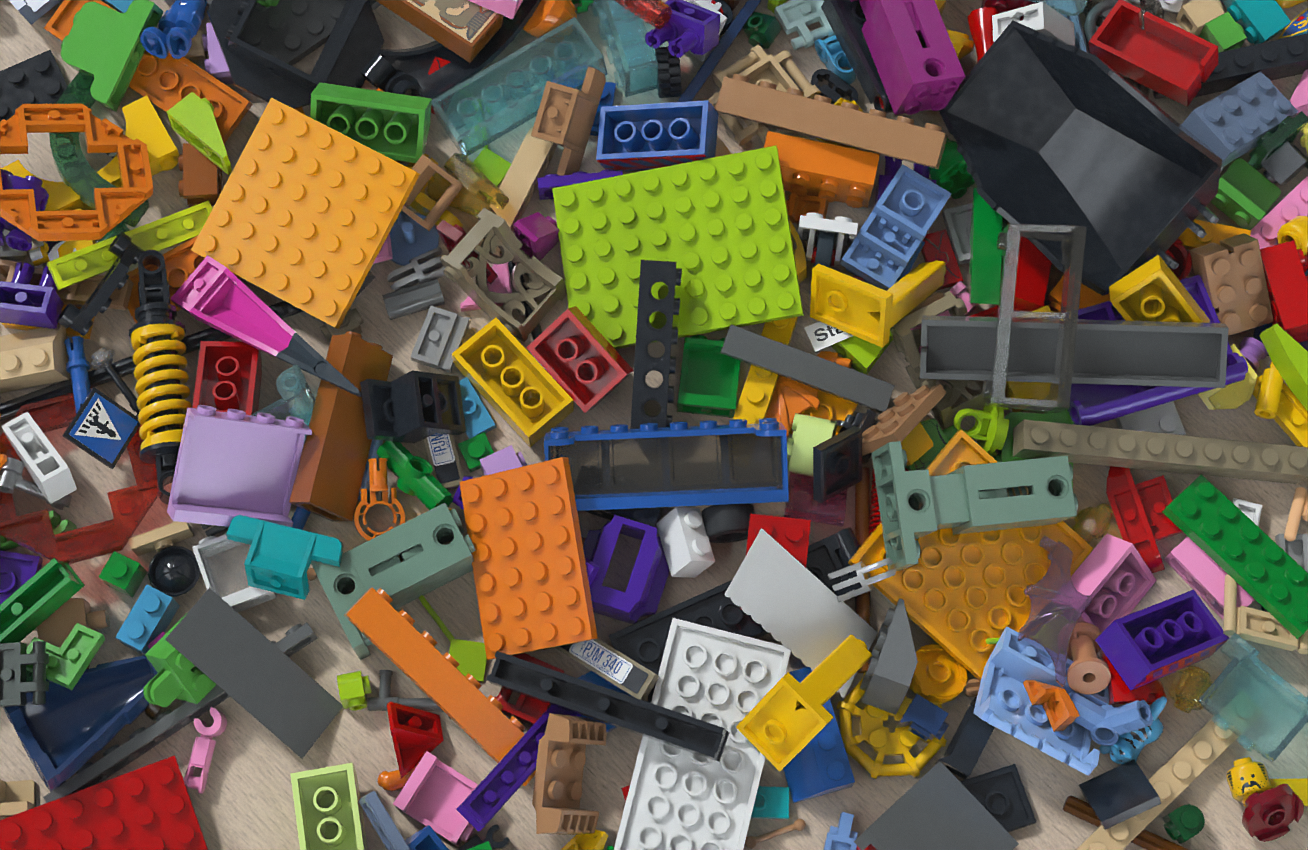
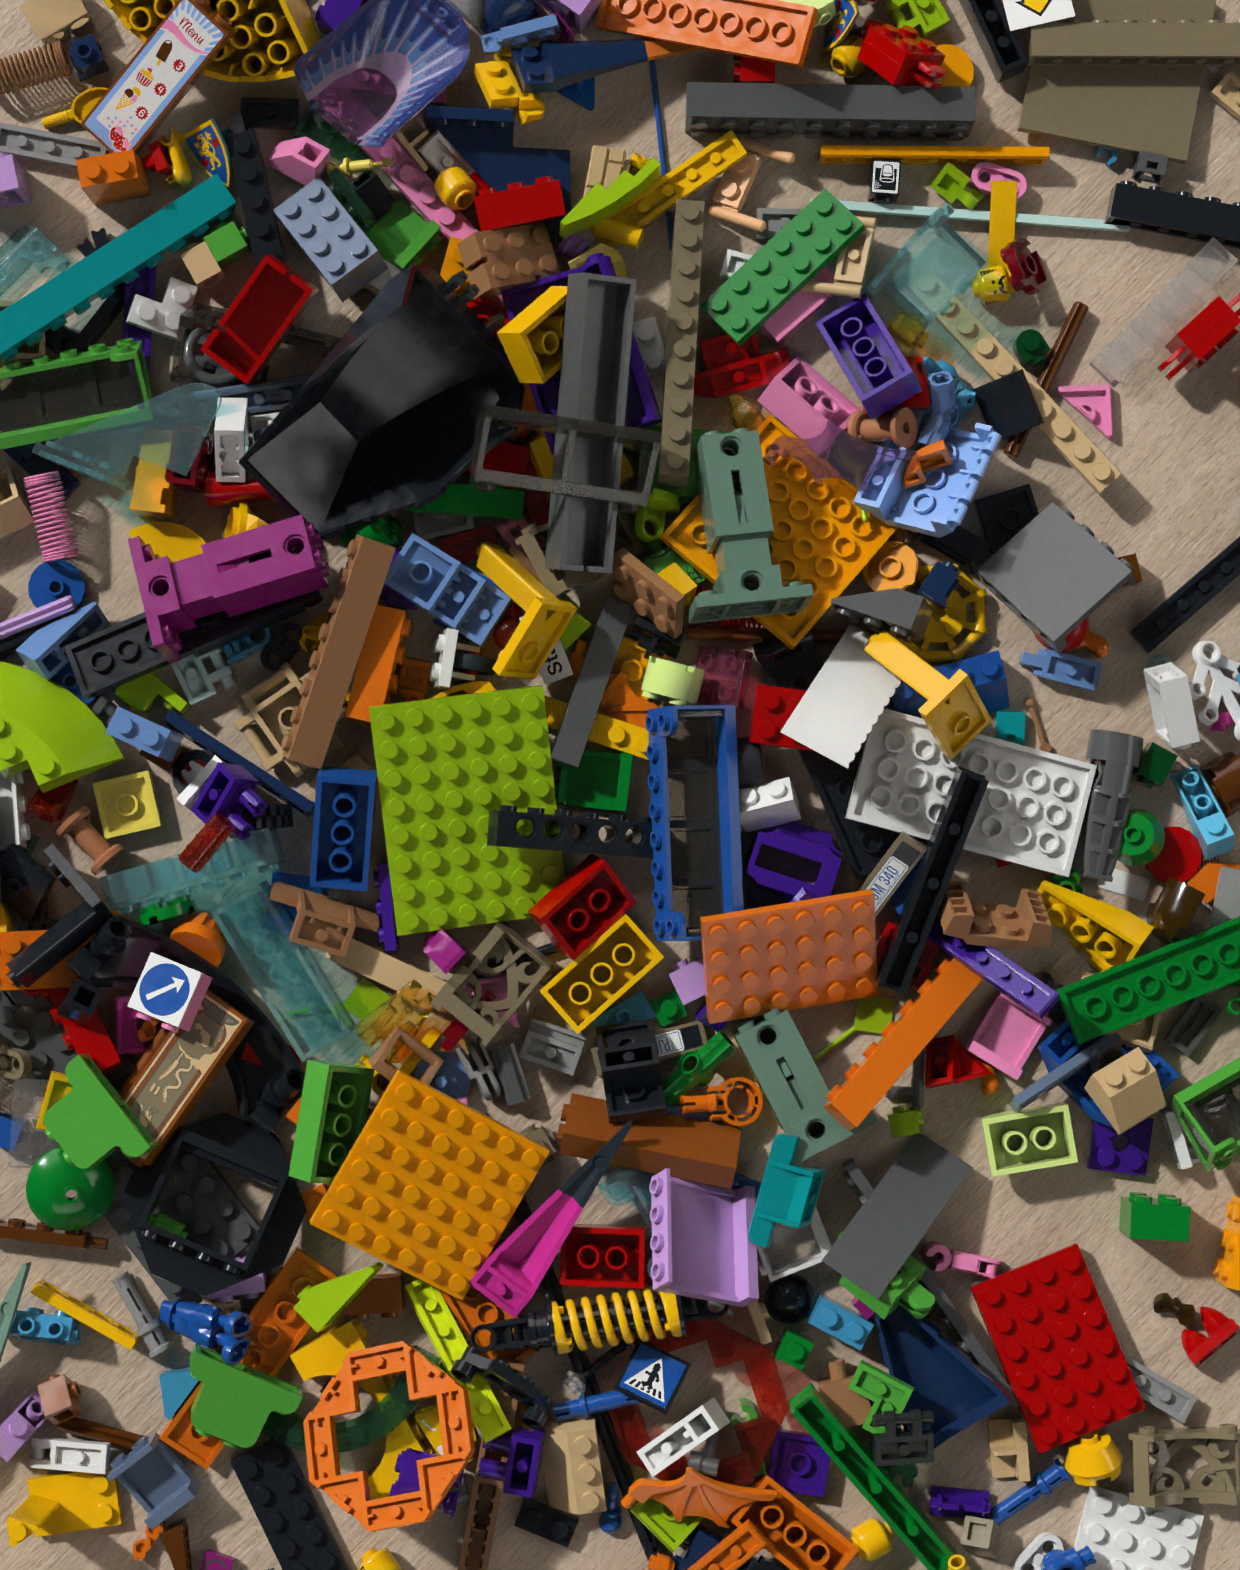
camera: 85 degrees left, 15 degrees up
(761, 29) = (216, 719): dark green plate -> none
(837, 464) = (696, 656): black tile -> none
(862, 576) = (813, 637): light grey arm -> none

